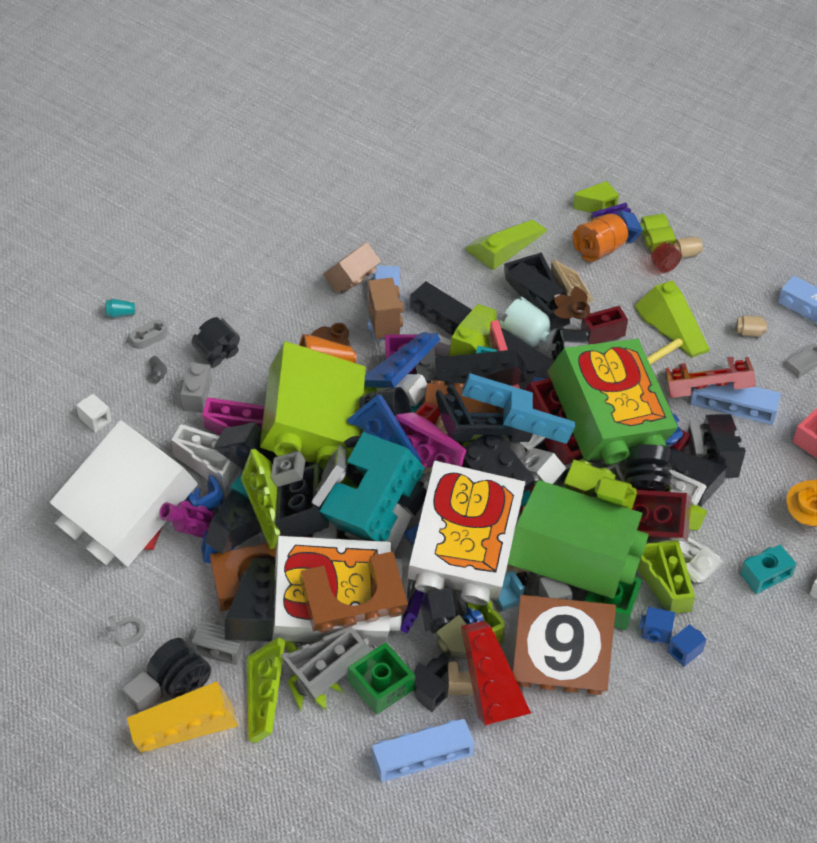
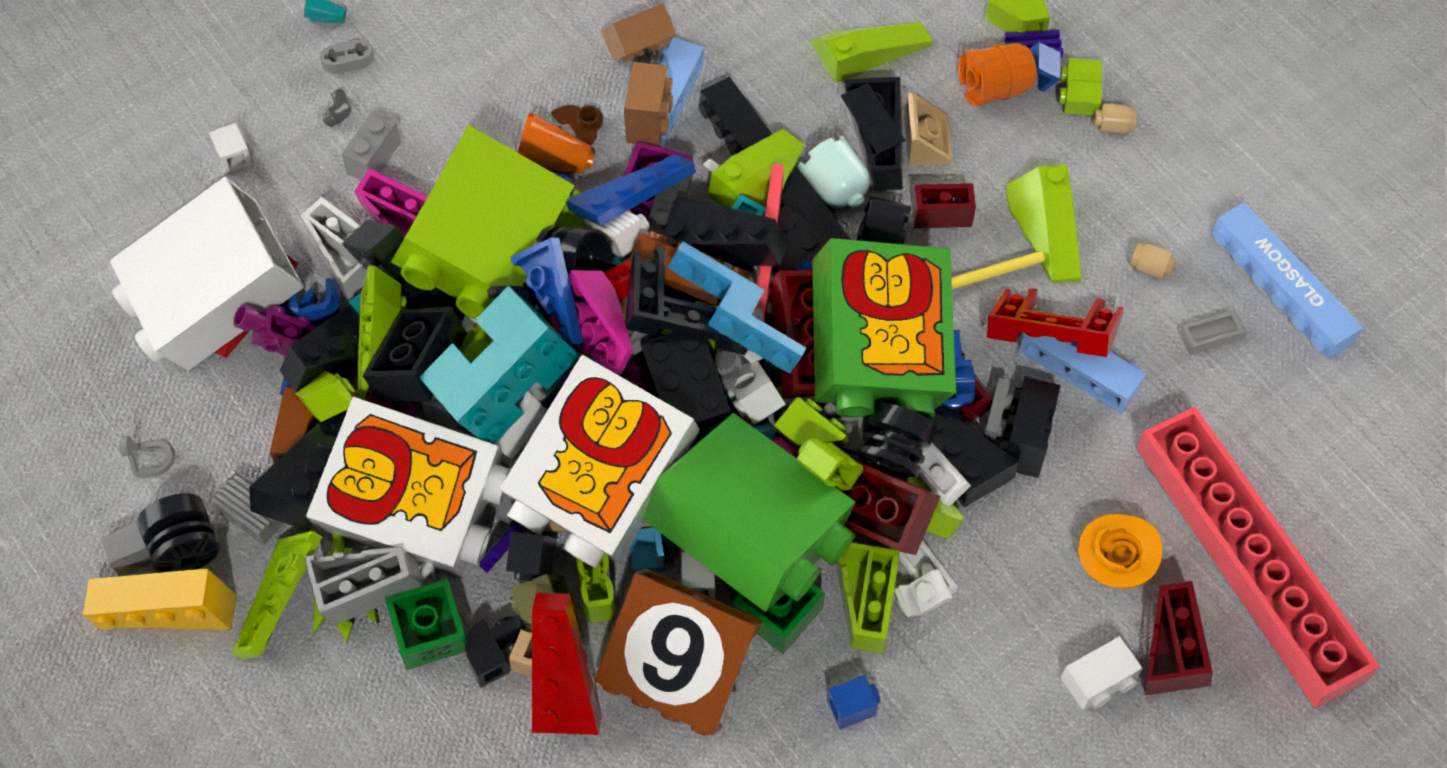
camera: 20 degrees right, 10 degrees up
(216, 341) = (420, 90): black brick -> none
(250, 547) = (326, 395): none -> lime slope
(288, 468) = (411, 303): light grey piece -> none
(328, 612) = (458, 525): dark orange arch -> none
(332, 474) = (453, 331): light grey wing -> none
(422, 750) = (439, 738): light blue brick -> none
(472, 616) = (572, 582): blue plate -> none
(569, 305) = (903, 164): reddish brown plate -> none
(657, 625) = (825, 661): blue brick -> none
(666, 257) = (1076, 126): clear red wheel -> none
(768, 568) = (1001, 637): teal brick -> none

